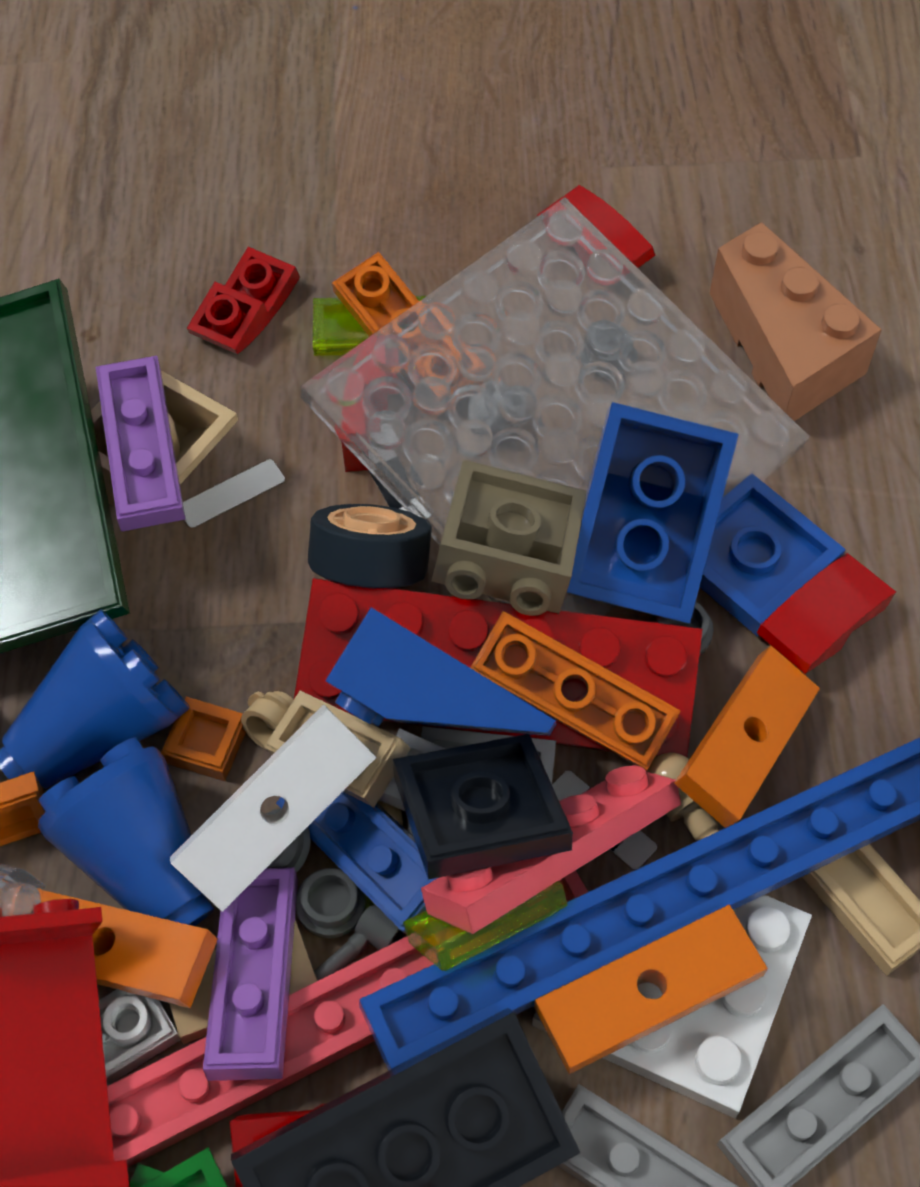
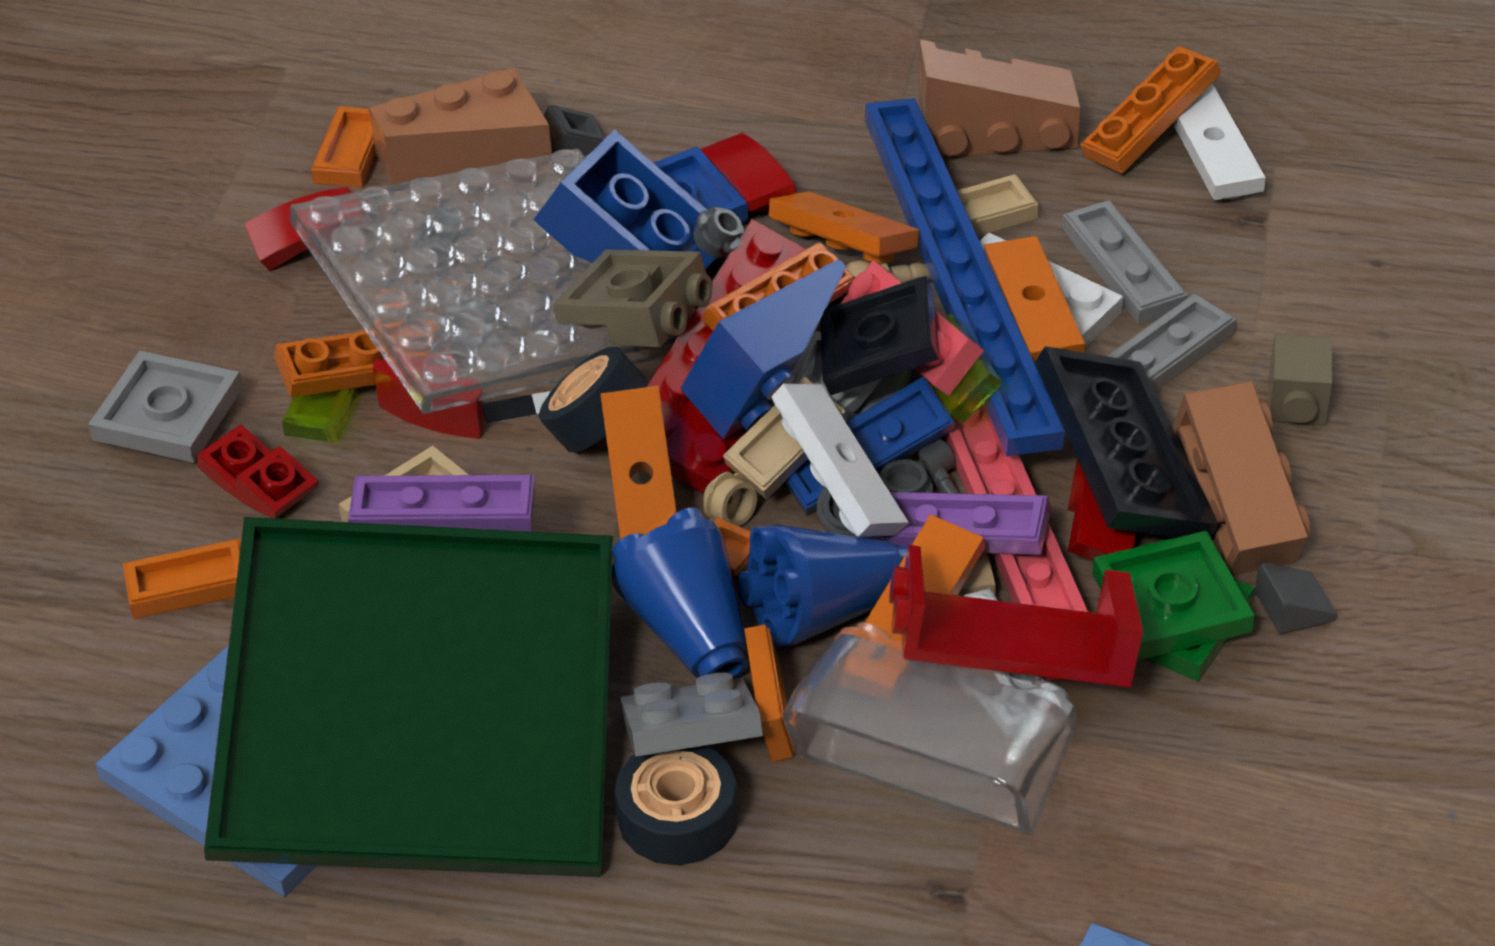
camera: 75 degrees left, 15 degrees down
(104, 291) = (182, 578): none -> orange tile
(252, 617) = (638, 445): none -> orange tile
(313, 206) = (166, 406): none -> light grey plate
(657, 581) = (718, 232): none -> dark grey plate
(713, 231) = (346, 149): none -> orange tile
(844, 427) = (572, 130): none -> dark grey slope

